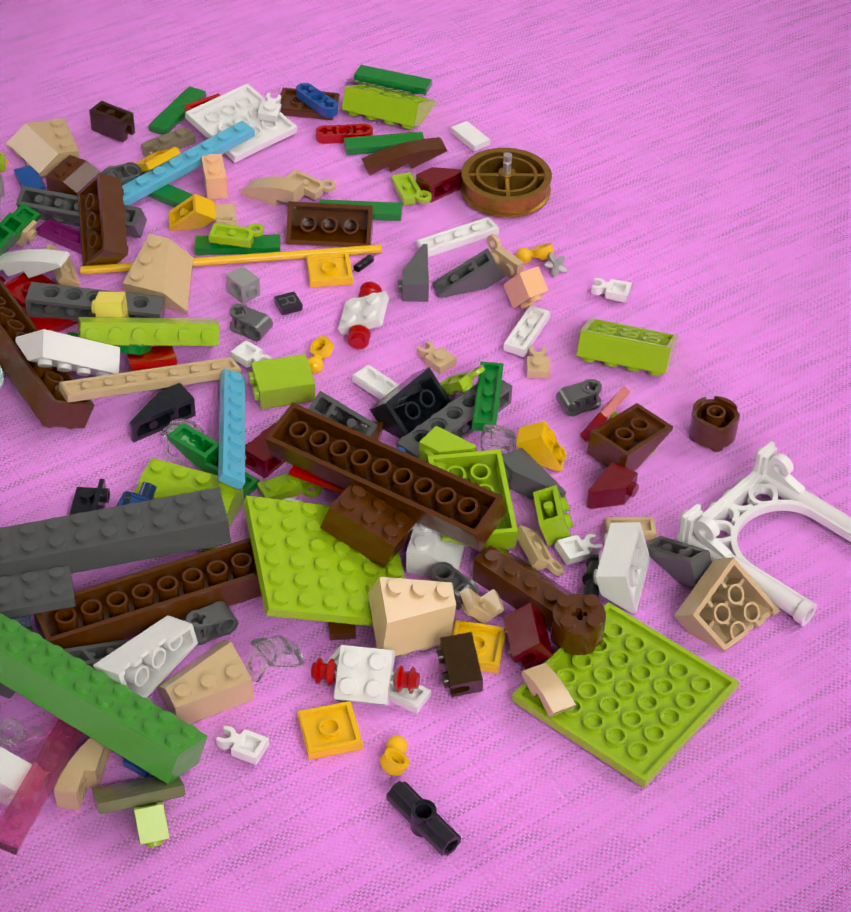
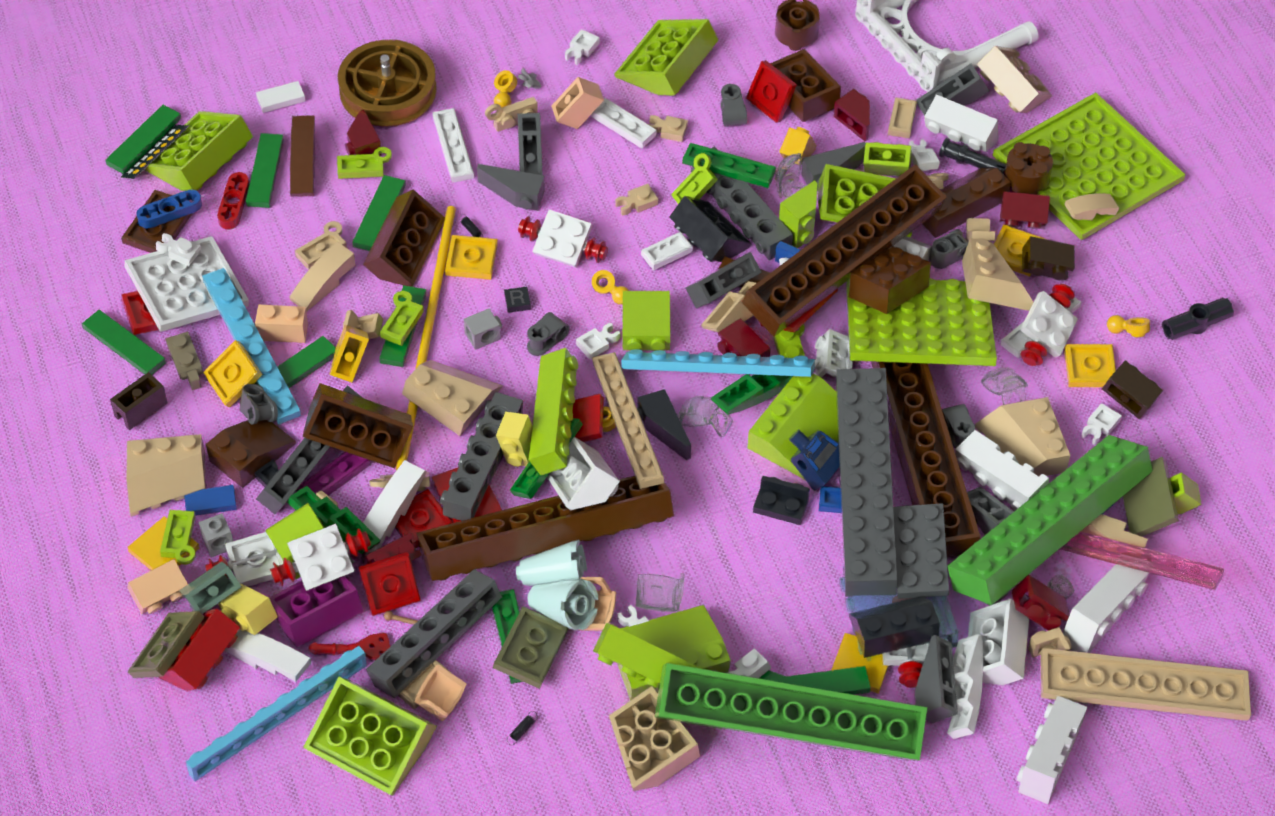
camera: 75 degrees left, 10 degrees up
(293, 762) = (1132, 389): none -> dark brown brick

